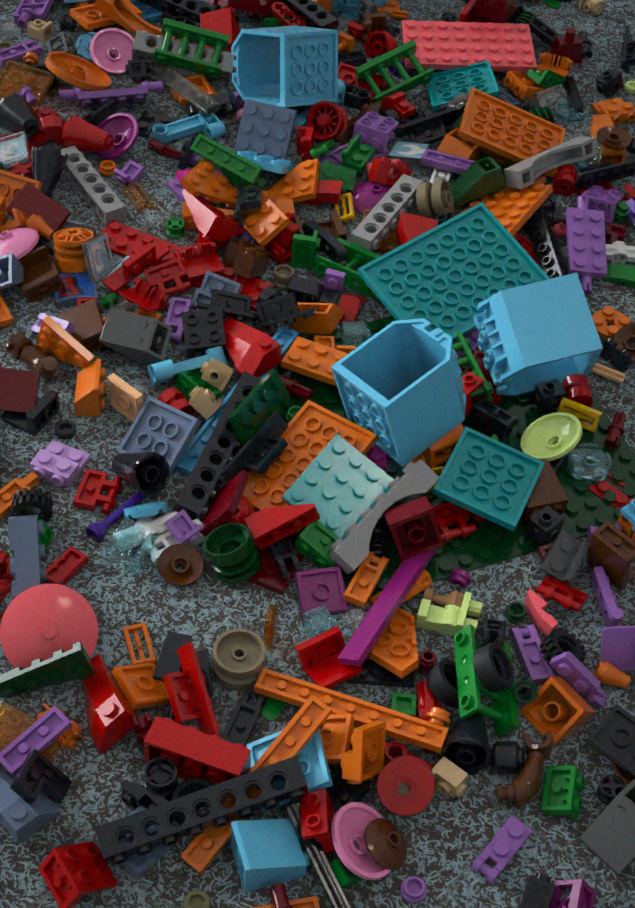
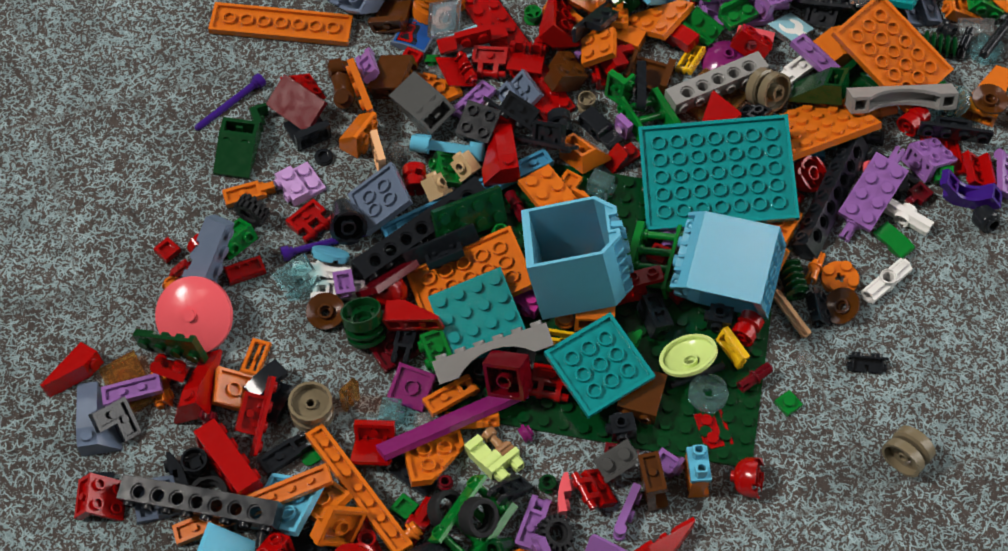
camera: 35 degrees right, 10 degrees up
(66, 696) = (174, 370): none -> red plate
(550, 101) = (965, 42): none -> black axle

